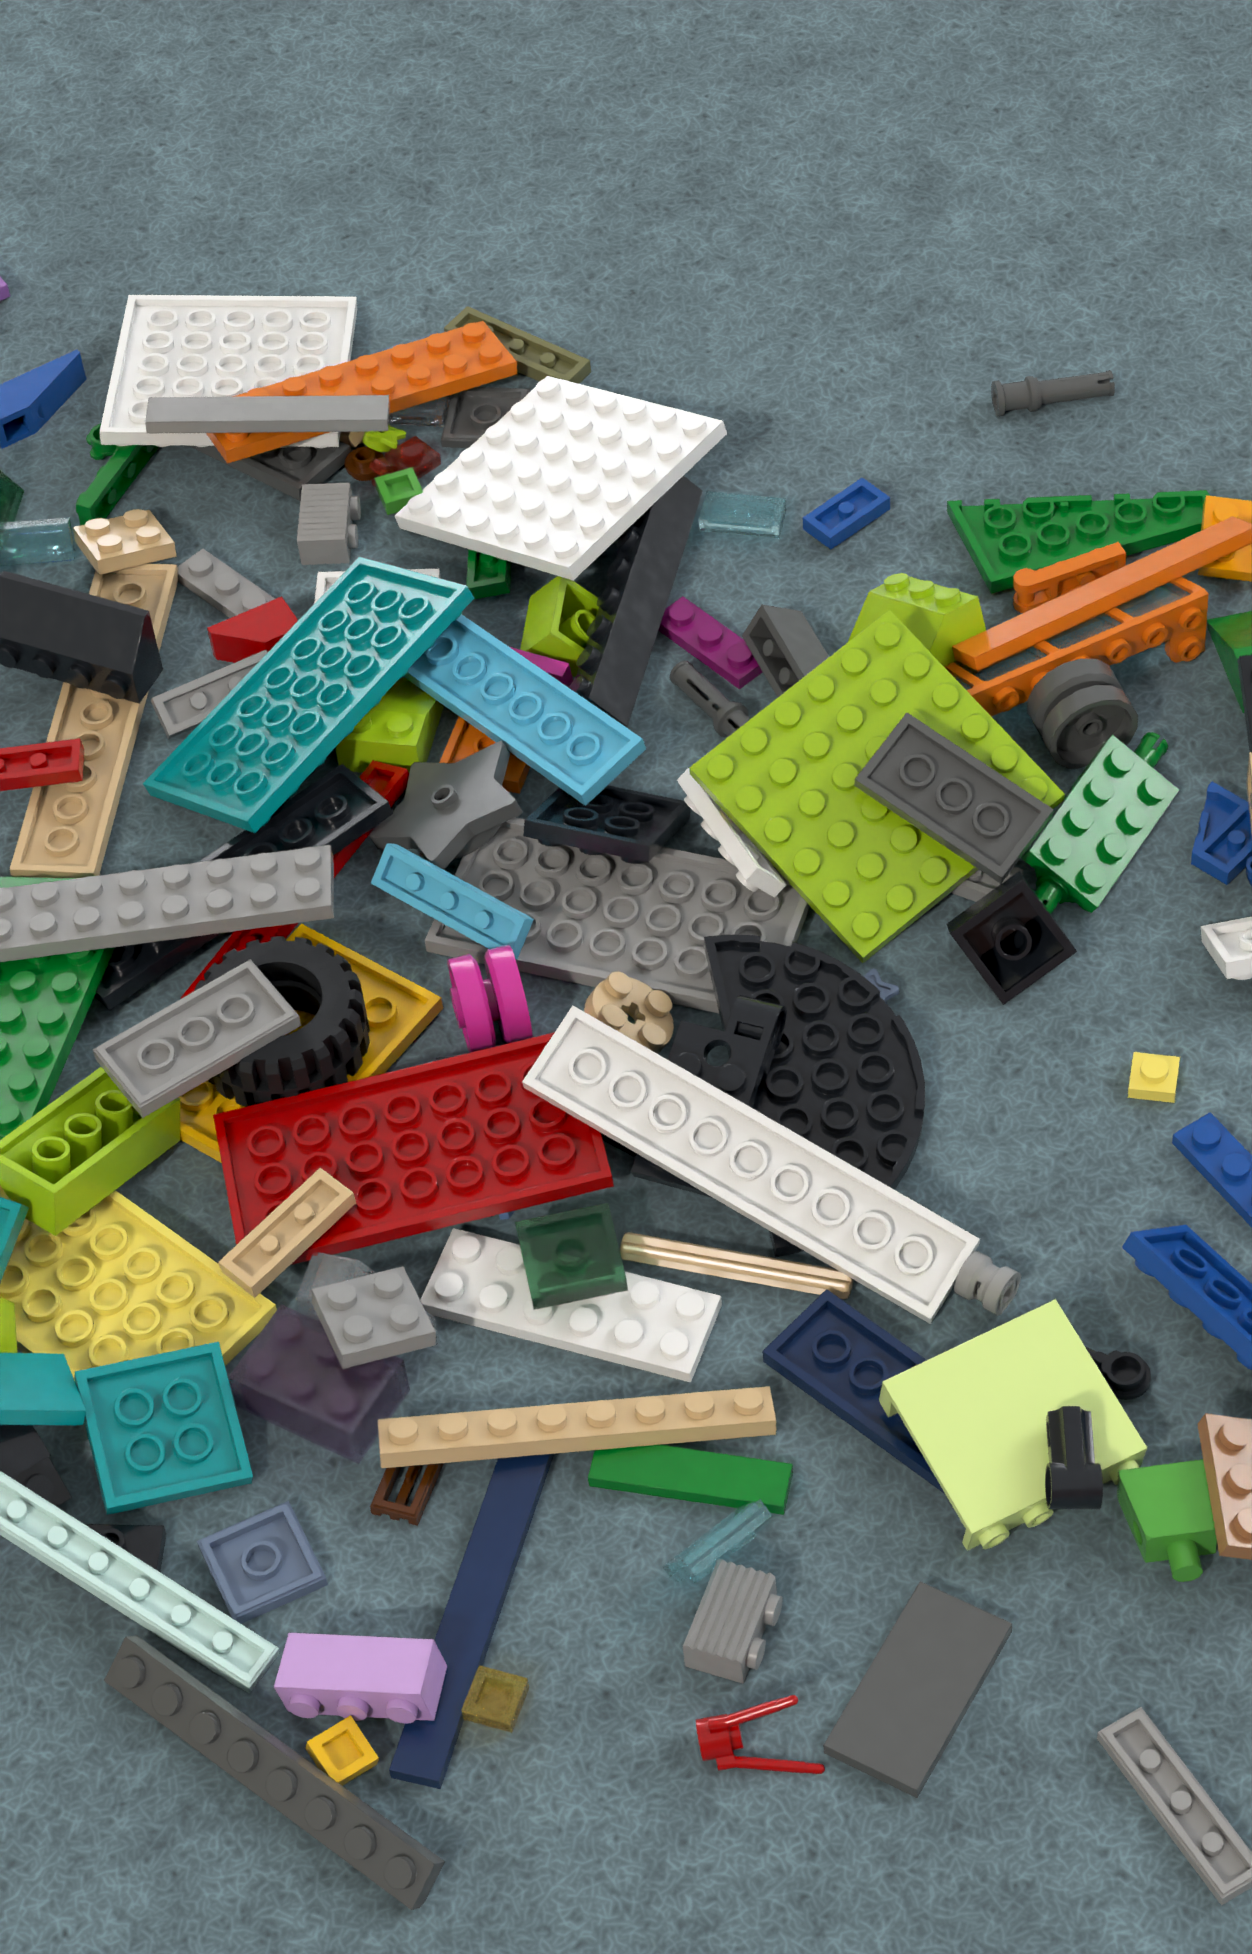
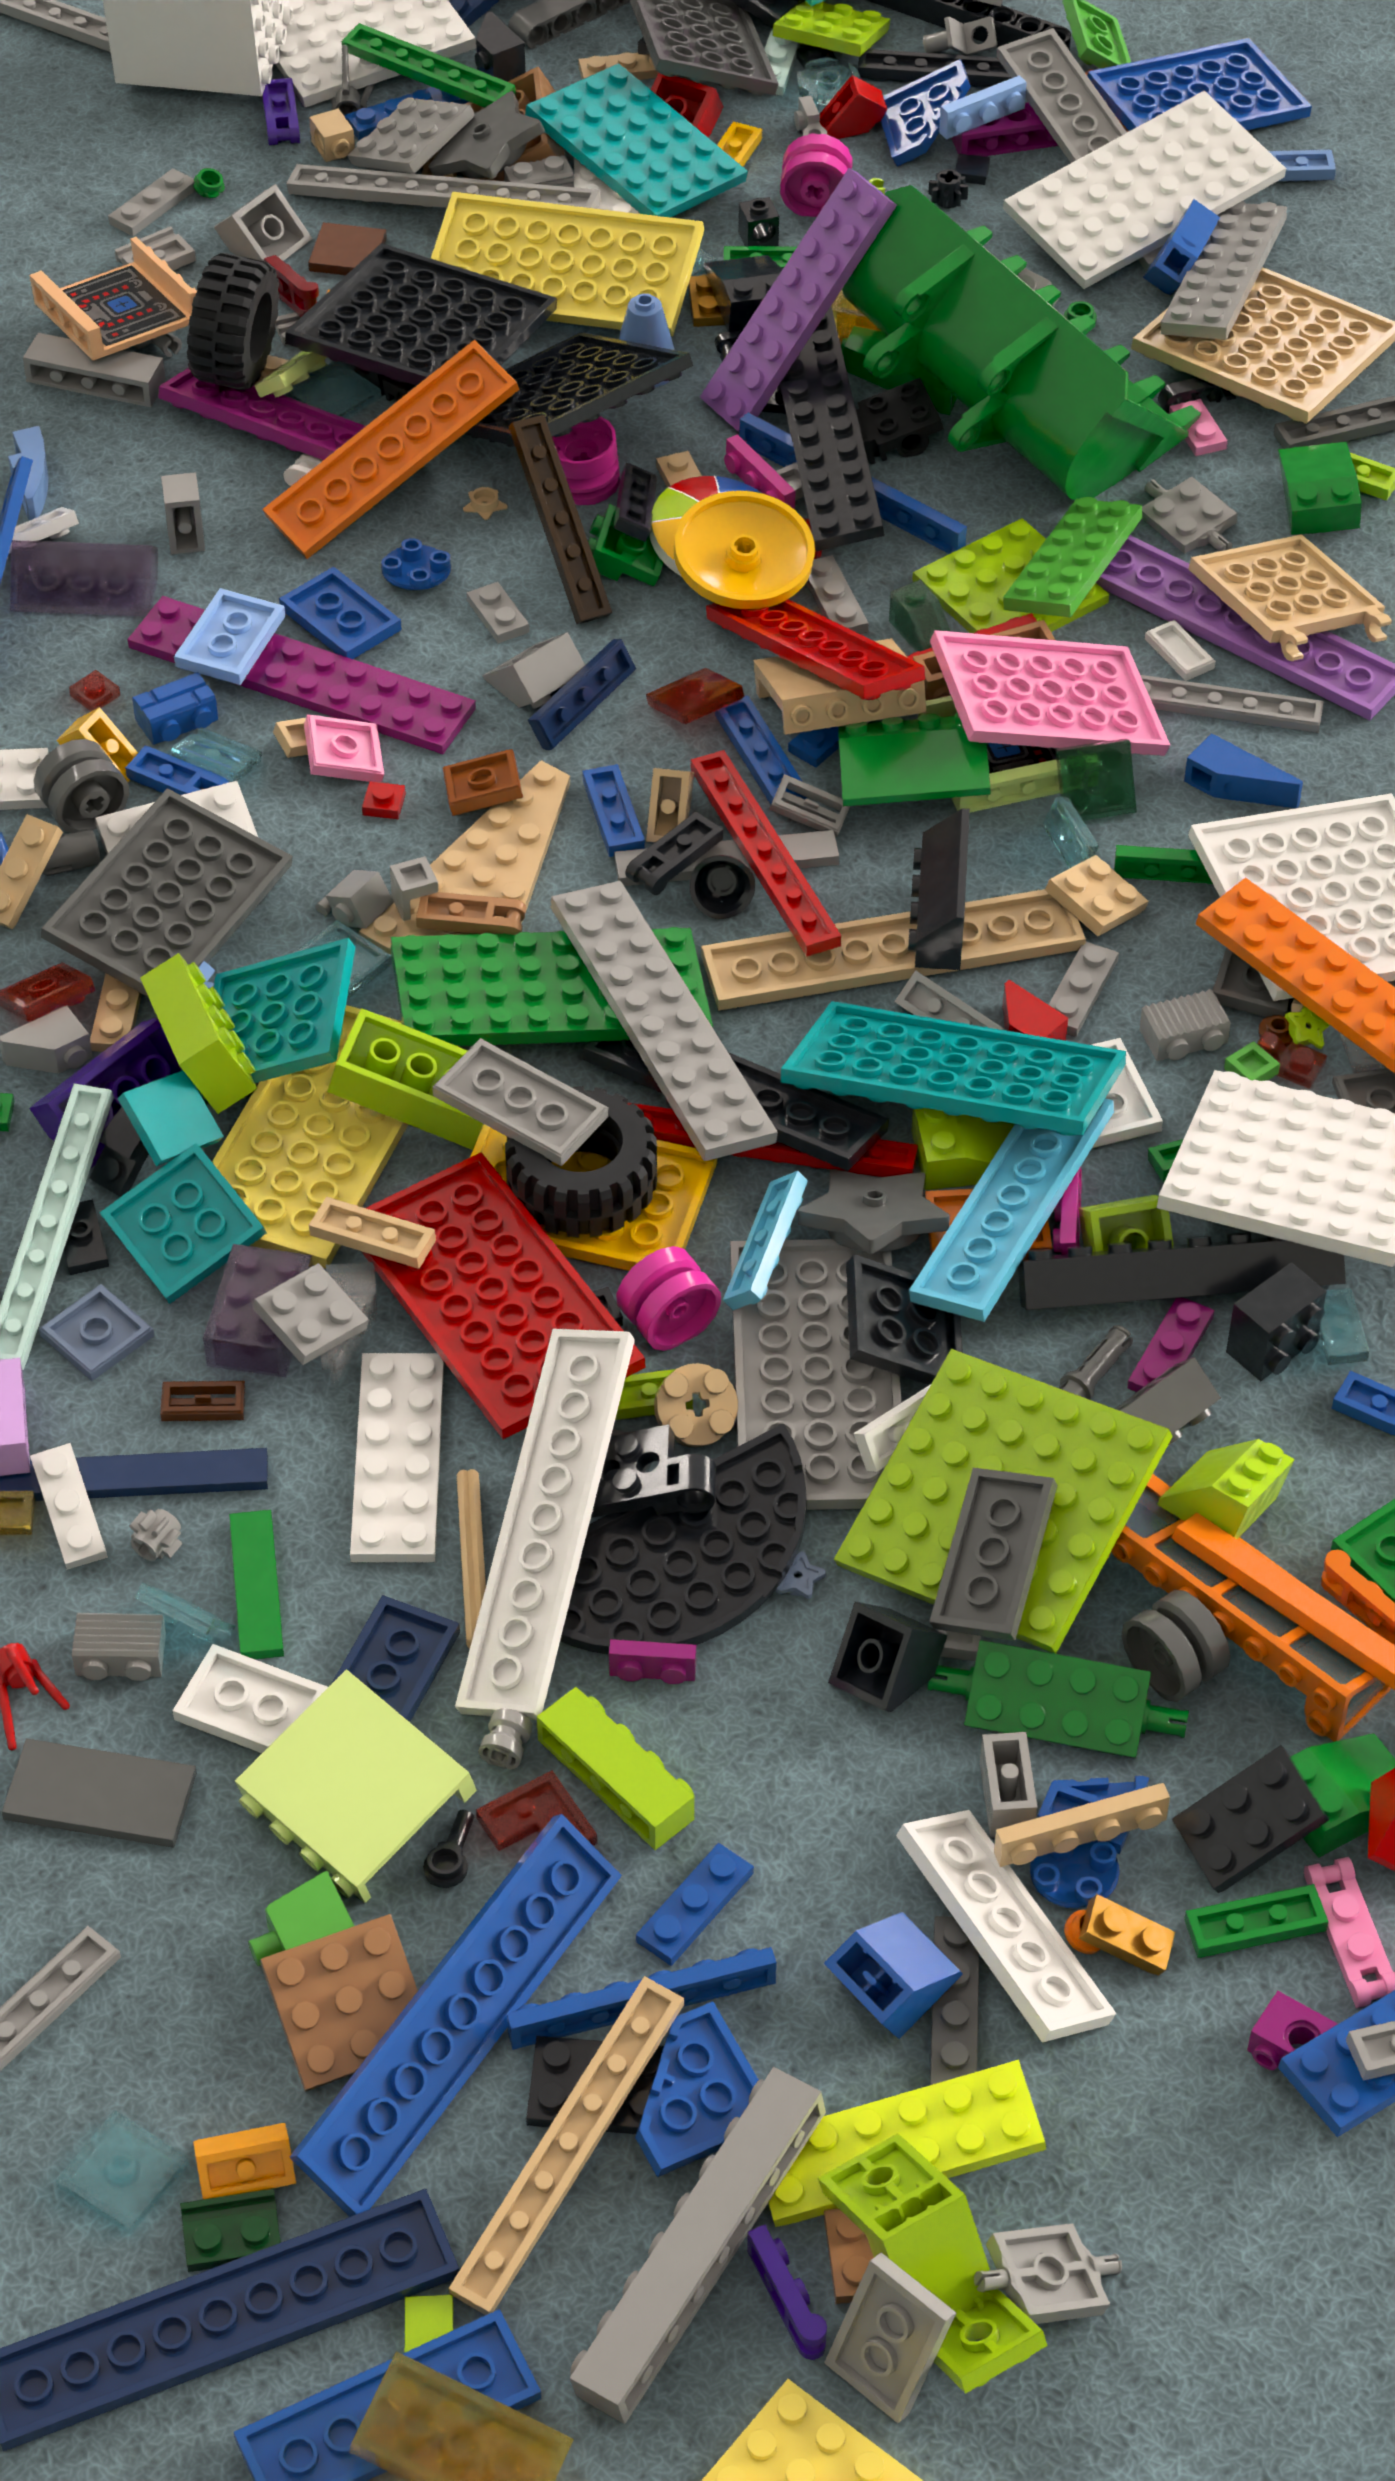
camera: 65 degrees right, 0 degrees up
(267, 414) = (1249, 926): light grey tile -> none
(514, 1634) = (68, 1506): none -> white plate
(571, 1256) = (424, 1432): clear green plate -> none
(576, 1427) = (270, 1492): tan plate -> none
(593, 1552) = (155, 1534): none -> light grey gear
(735, 544) = (1276, 1322): none -> black brick
(855, 1510) = (244, 1699): none -> white plate
(931, 1146) = (652, 1660): none -> magenta plate
(1062, 1192) = (616, 1767): none -> lime brick
(1072, 1474) = (299, 1830): black piece -> none
(1082, 1276) = (530, 1810): none -> clear red plate
(1153, 1077) = (783, 1816): light yellow plate -> none
(1191, 882) = (1007, 1780): none -> light grey brick

